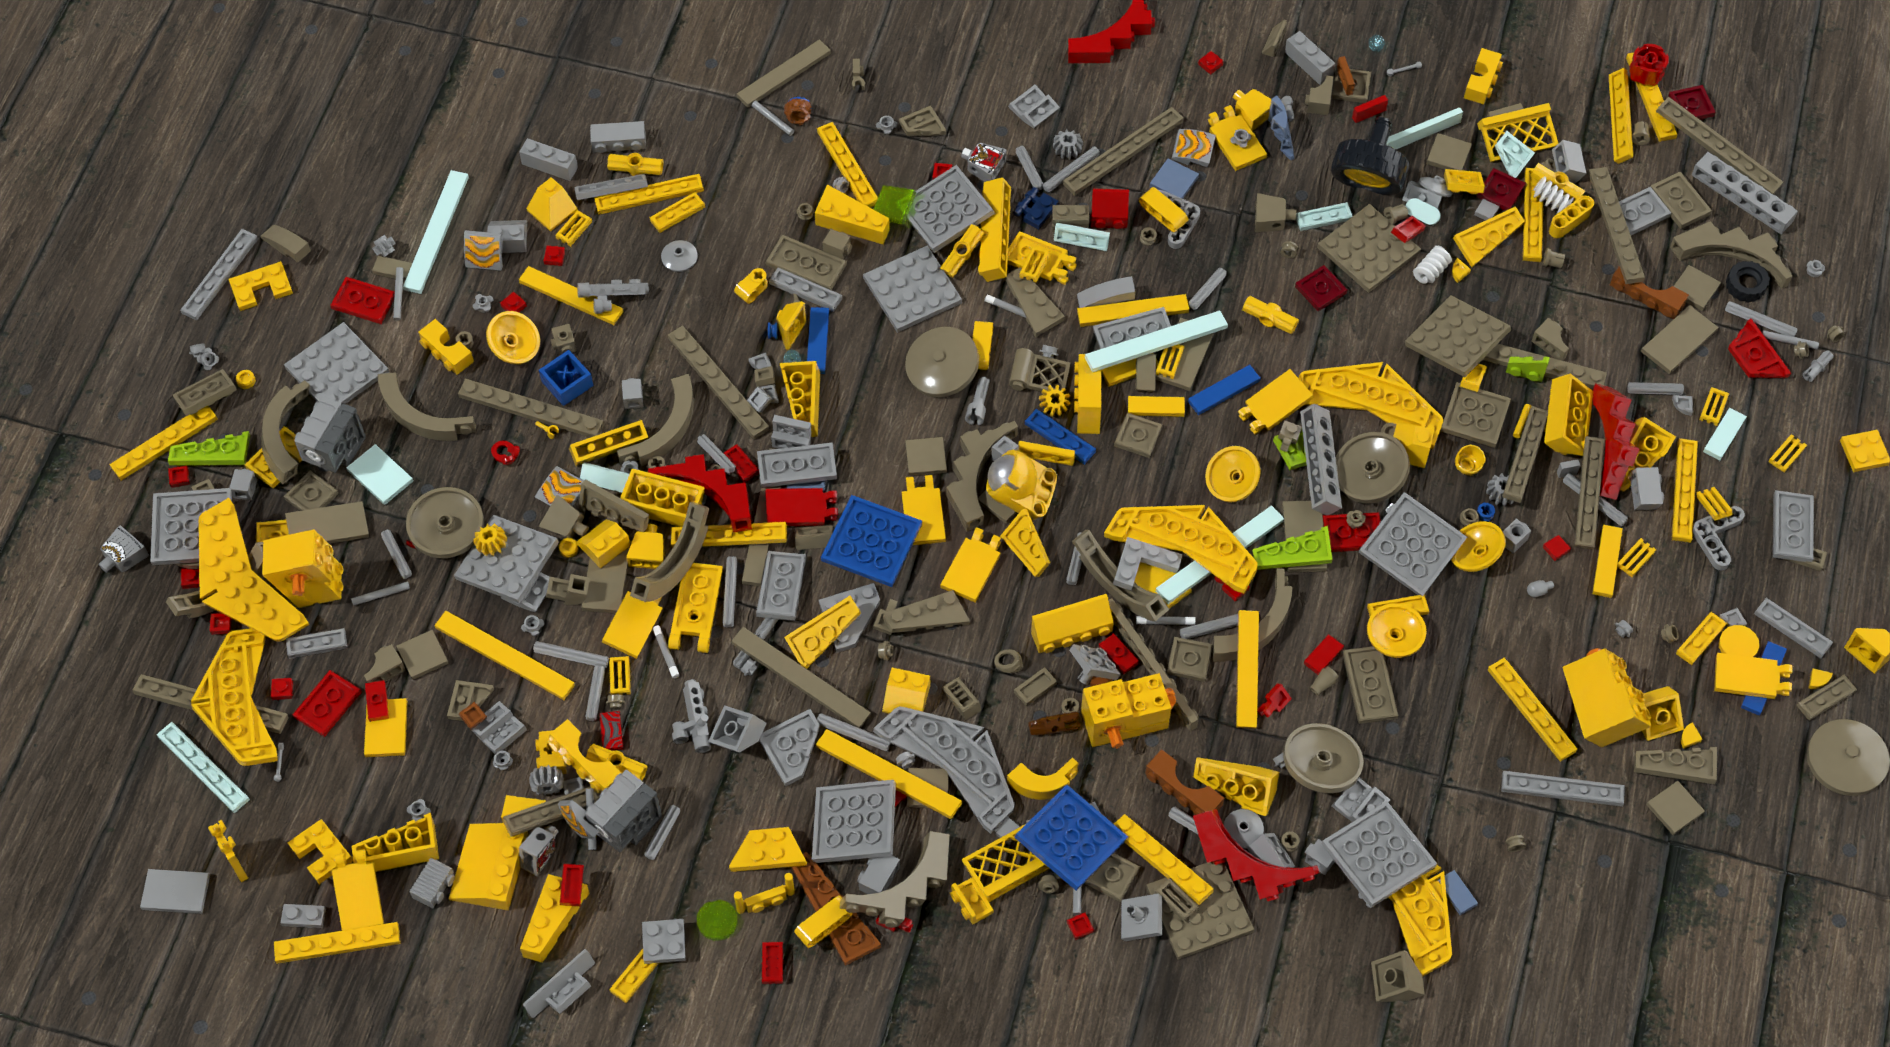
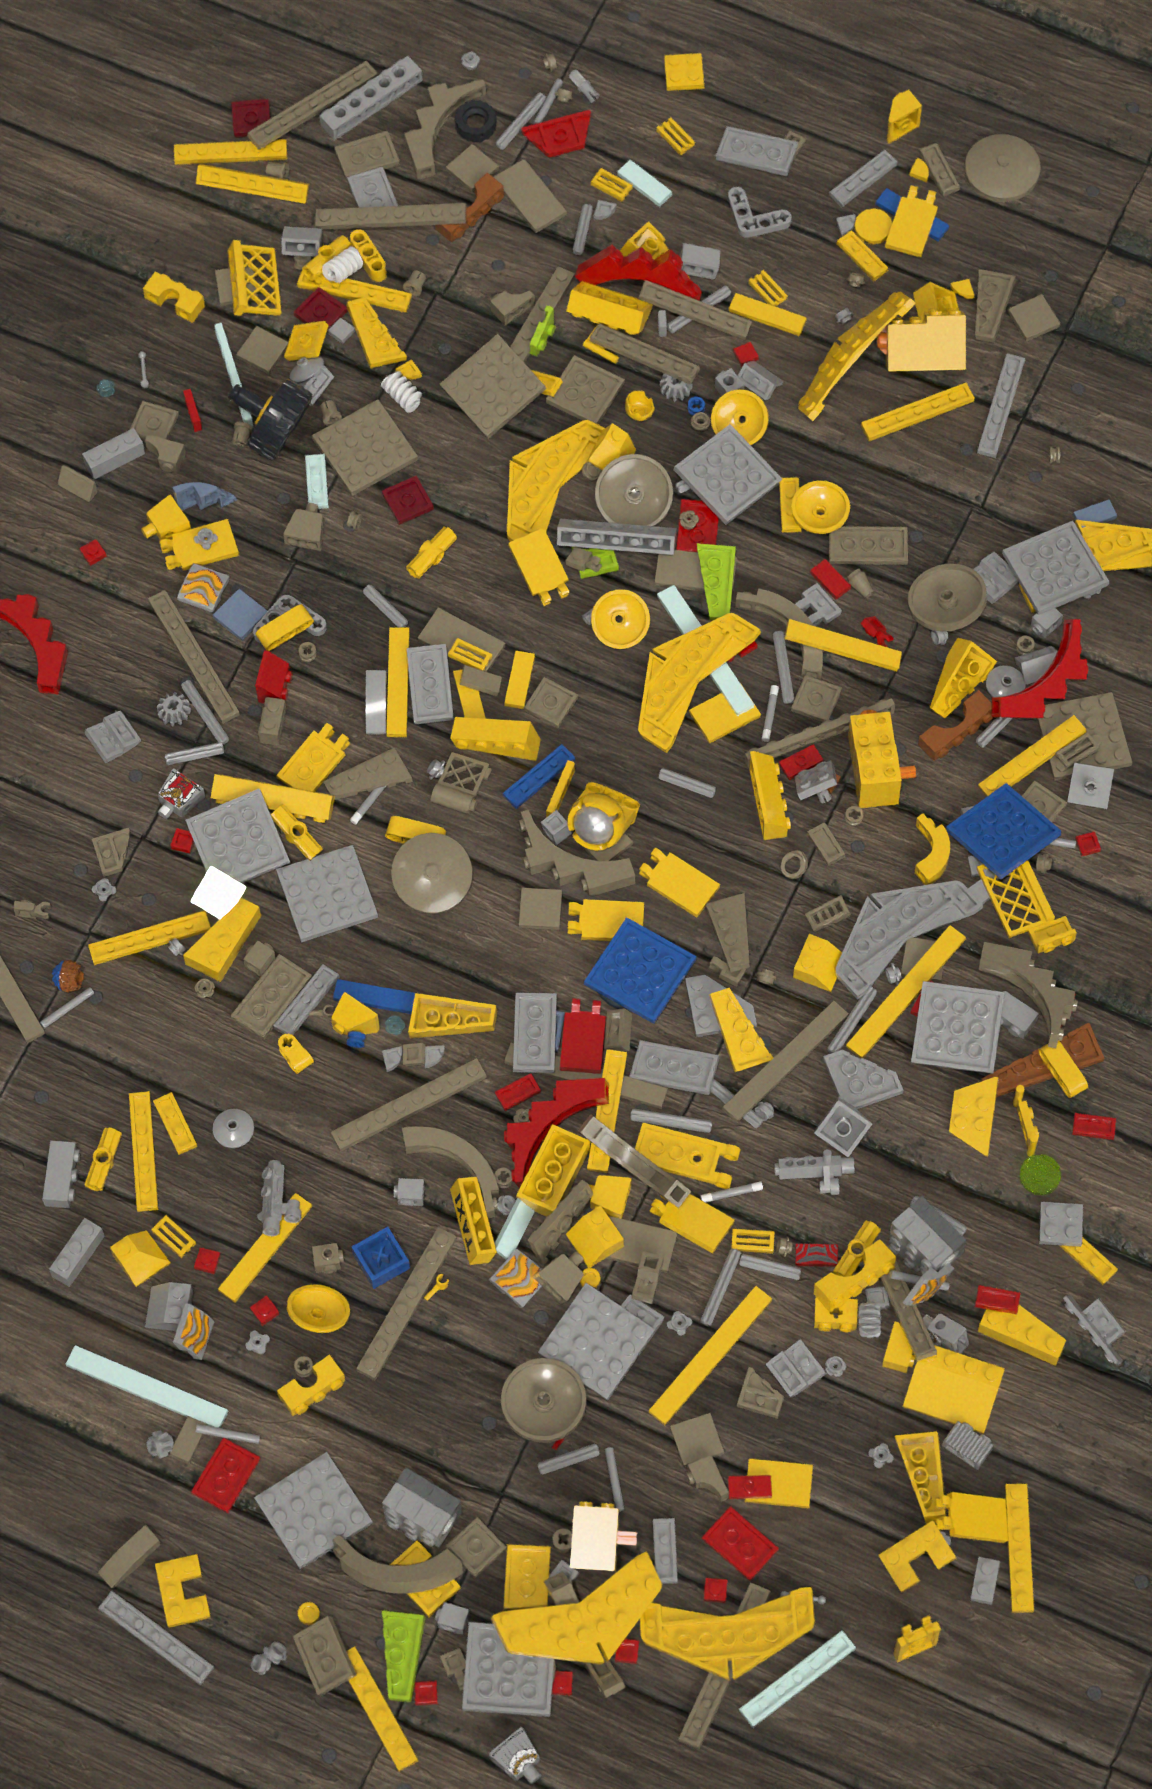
camera: 80 degrees left, 5 degrees up
(175, 891) = (940, 1712): light grey tile -> none
(332, 523) = (522, 1529): dark tan tile -> none
(379, 474) = (464, 1469): light aqua tile -> none
(416, 421) = (398, 1431): dark tan arch -> none
(472, 715) = (783, 1388): dark orange tile -> none
(490, 539) = (577, 1342): yellow gear -> none
(506, 460) = (459, 1323): red piece -> none
(611, 186) = (128, 1189): light grey tile -> none
(716, 453) = (503, 1114): light grey axle -> none
(759, 399) = (442, 1063): light grey tile -> none
(790, 432) = (498, 1032): light grey slope -> none
(976, 409) = (494, 849): light grey piece -> none
(1023, 273) = (341, 772): yellow tile -> none
(1026, 544) = (664, 825): yellow wing -> none
(1039, 212) = (252, 751): dark blue plate -> none
(1047, 398) = (499, 772): yellow gear -> none
(1054, 724) = (872, 832): reddish brown hinge -> none
(1081, 236) = (298, 714): light aqua tile -> none
(1138, 551) = (696, 724): light grey plate -> none
(1138, 600) = (731, 744): dark tan arch -> none
(1156, 341) = (452, 660): light aqua tile -> none
(1224, 389) = (511, 613): blue tile -> none
(1288, 101) = (164, 487): light grey piece -> none
(1293, 648) = (821, 604): none -> light grey plate
(1345, 75) = (149, 422): dark orange tile -> none
(1408, 229) = (353, 404): red tile -> none
(1423, 211) = (332, 387): light aqua tile -> none
(1513, 153) = (281, 289): light aqua wing -> none
(1531, 561) = (759, 379): none -> light grey panel
(1539, 588) = (788, 377): light grey cylinder -> none
(1571, 626) = (853, 345): none -> yellow wing
(1648, 64) = (203, 140): red brick -> none
(1684, 490) = (701, 232): yellow tile -> none
(1717, 502) = (722, 206): yellow tile -> none

